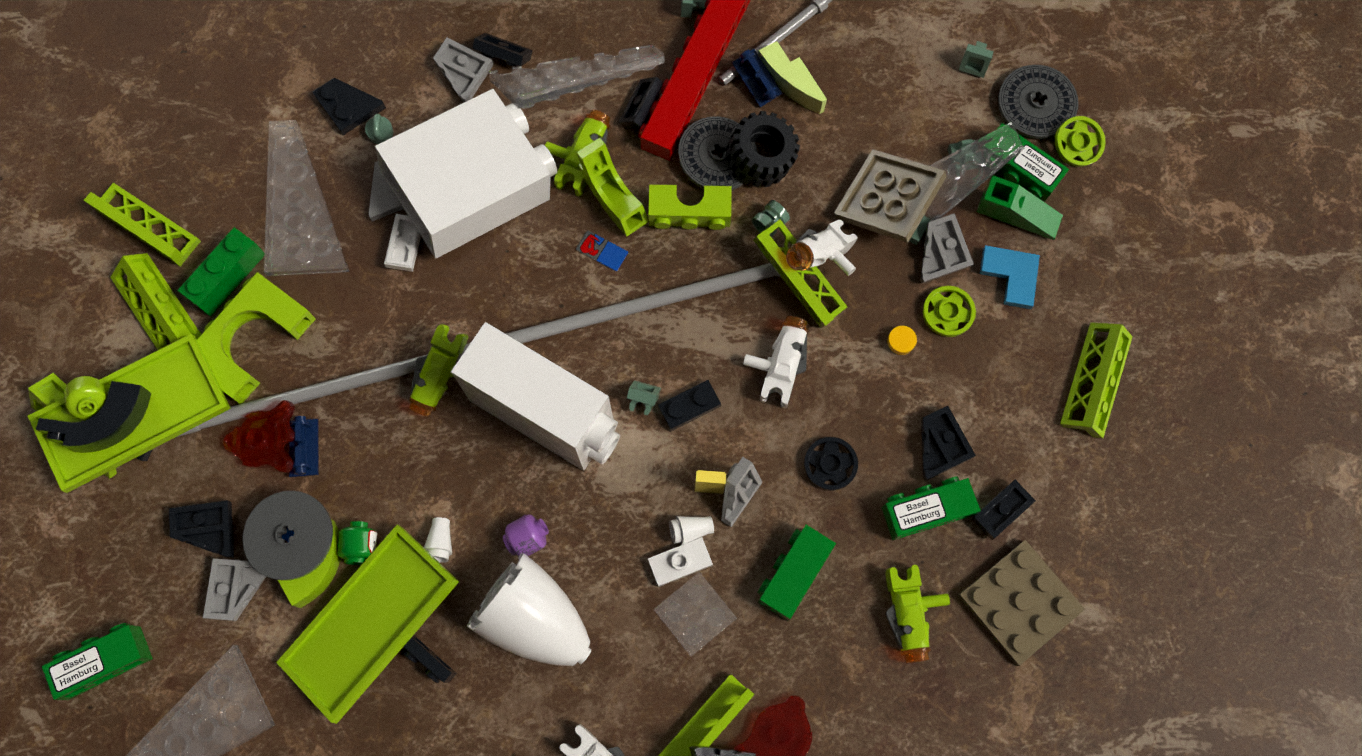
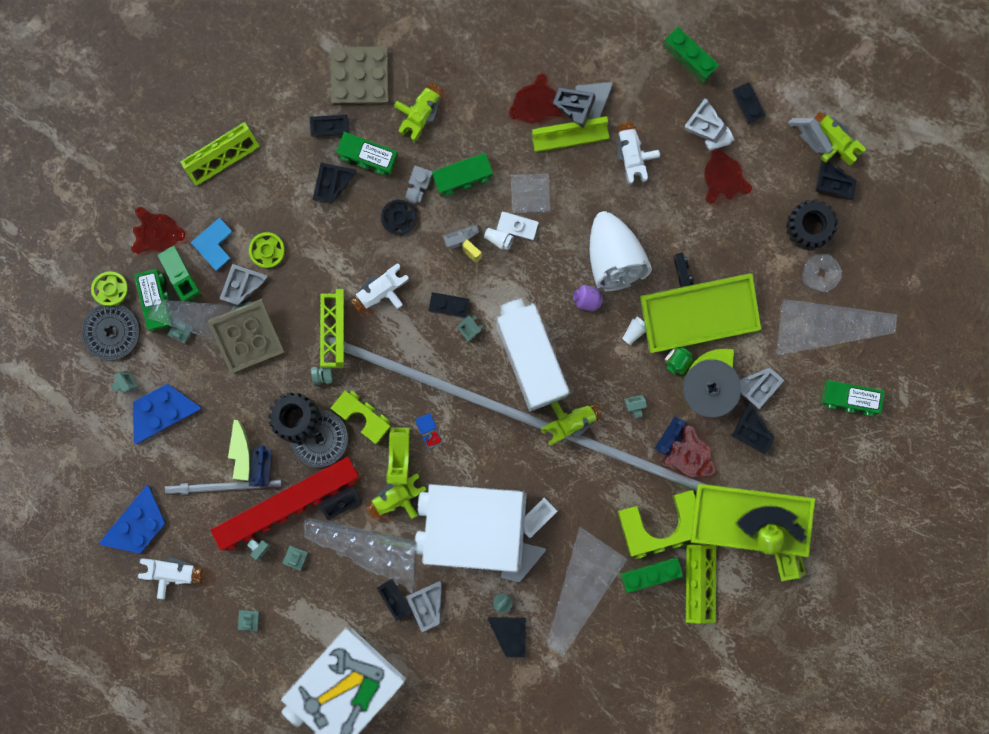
camera: 145 degrees left, 10 degrees up
(136, 228) = (683, 641): lime fence -> none
(375, 451) = (635, 404): none -> sand green tile
(644, 19) = (295, 558): none -> sand green tile
(815, 248) = (311, 334): white piece -> none
(842, 528) = (420, 180): none -> light grey plate
(902, 340) = (305, 253): yellow tile -> none
(912, 61) = (159, 411): none -> blue wing
(1086, 239) = (156, 232): none -> clear red tile

